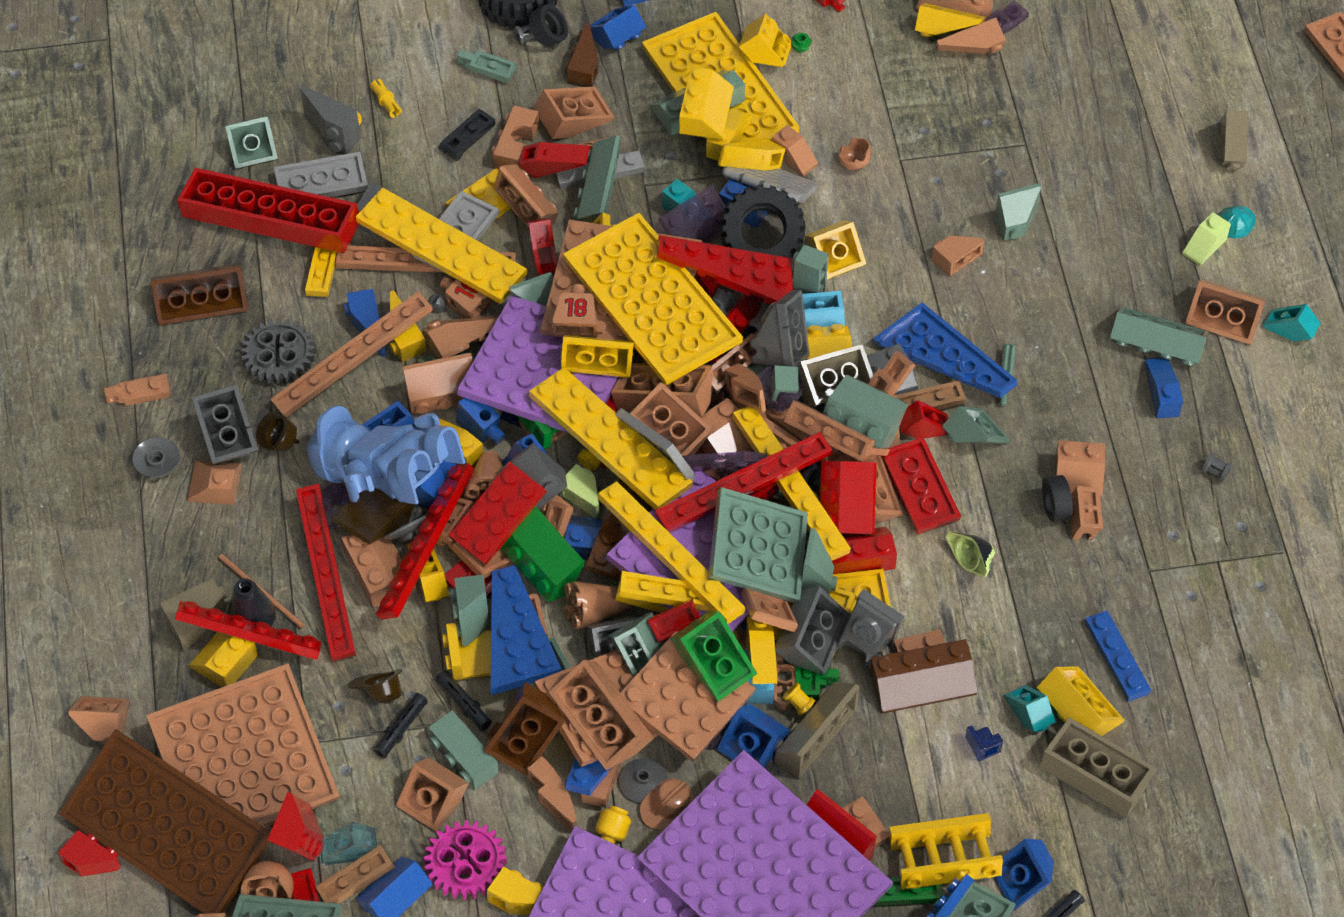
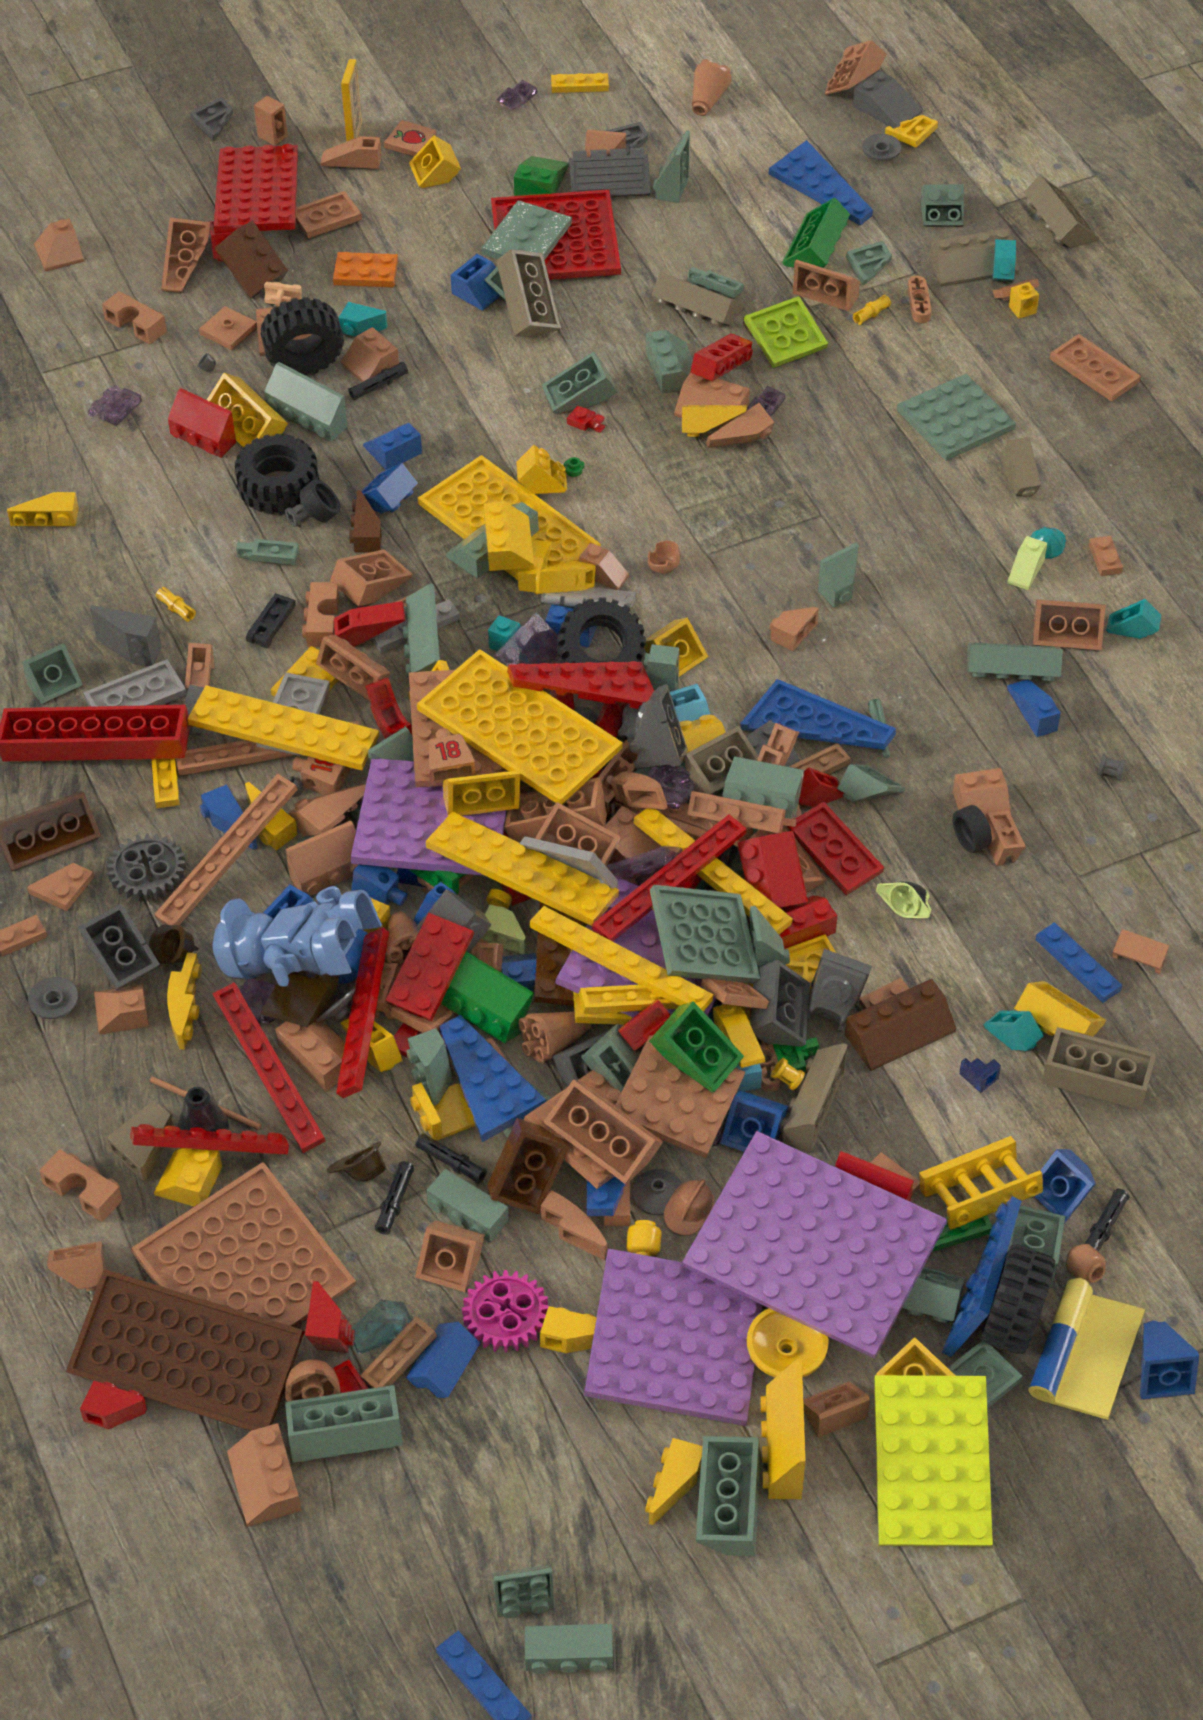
camera: 15 degrees left, 5 degrees down
(116, 627) = (66, 1172): none -> nougat arch
(199, 351) = (62, 886): none -> nougat wing
(268, 486) = (181, 999): none -> yellow slope
(386, 164) = (199, 664): none -> nougat slope
(783, 380) = (674, 774): sand green panel -> none
(1180, 659) = (1141, 950): none -> nougat hinge
(1190, 71) = (956, 417): none -> sand green plate
(1288, 248) = (1105, 555): none -> nougat plate

